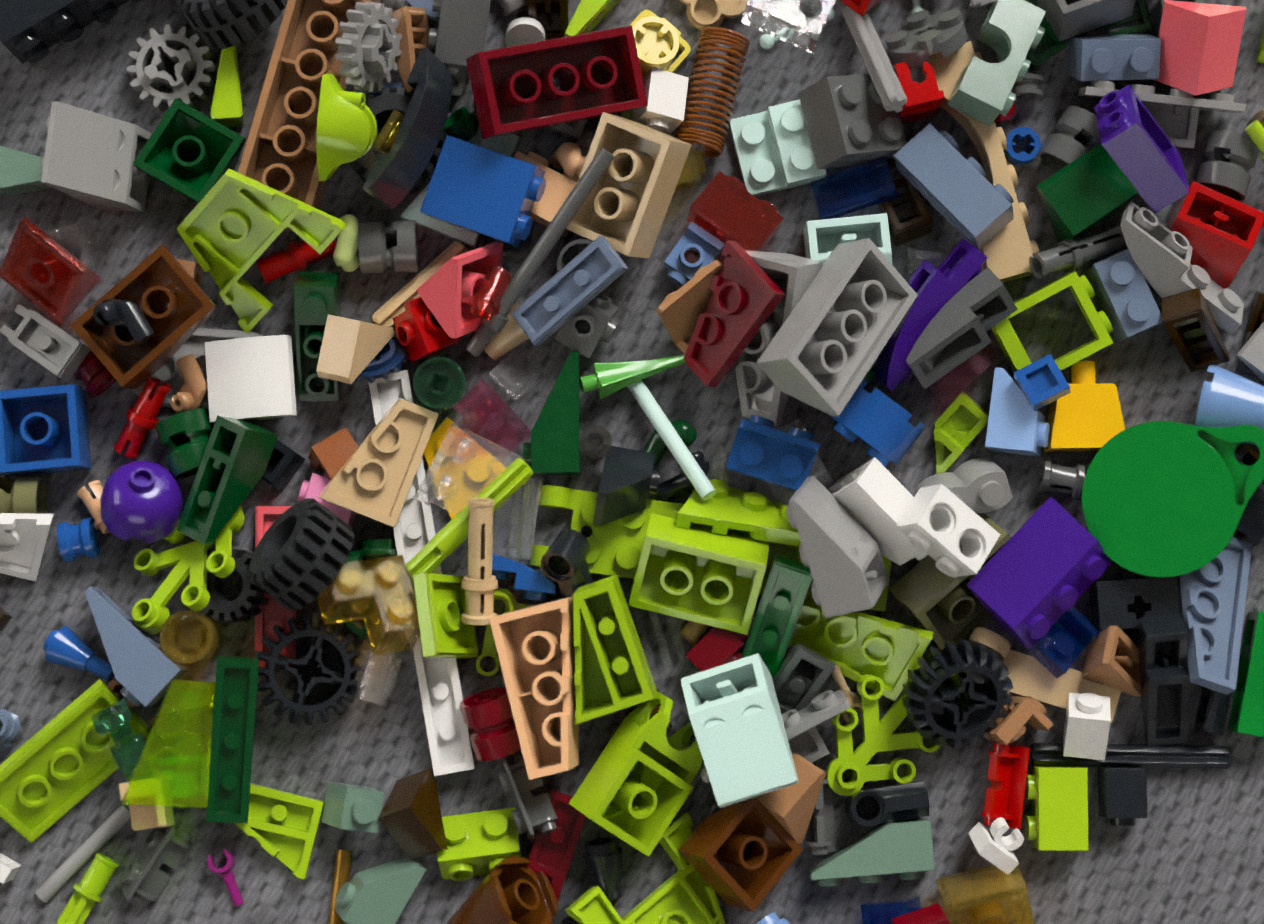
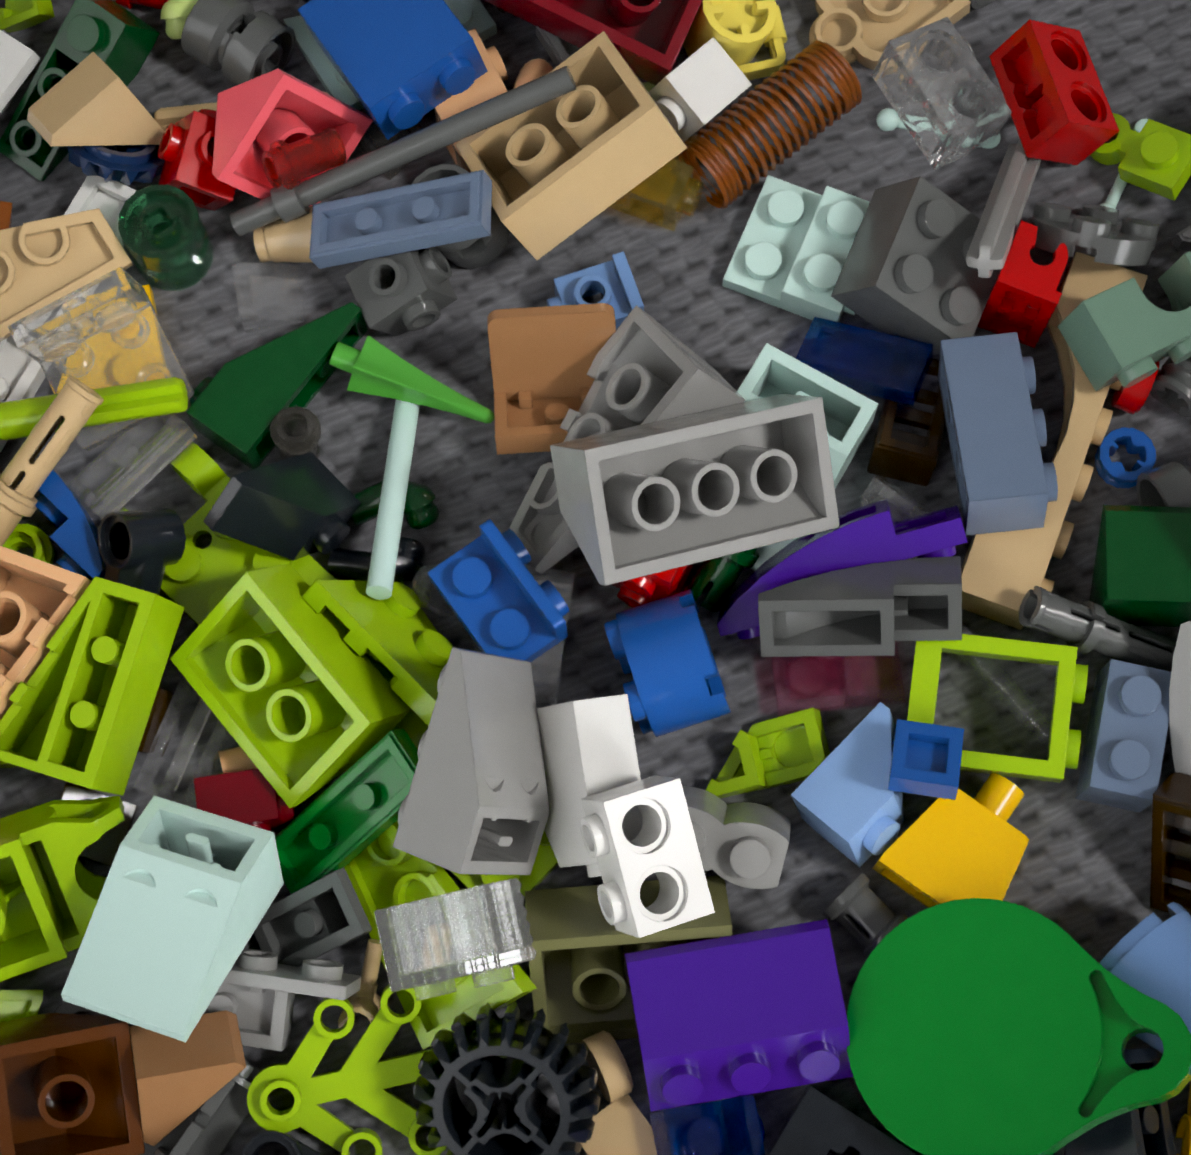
camera: 45 degrees right, 10 degrees down
(492, 416) = (195, 314): clear pink slope -> none
(735, 214) = (685, 283): clear red brick -> none
(736, 311) = (599, 376): dark red wing -> none
(881, 638) = (455, 936): none -> clear brick

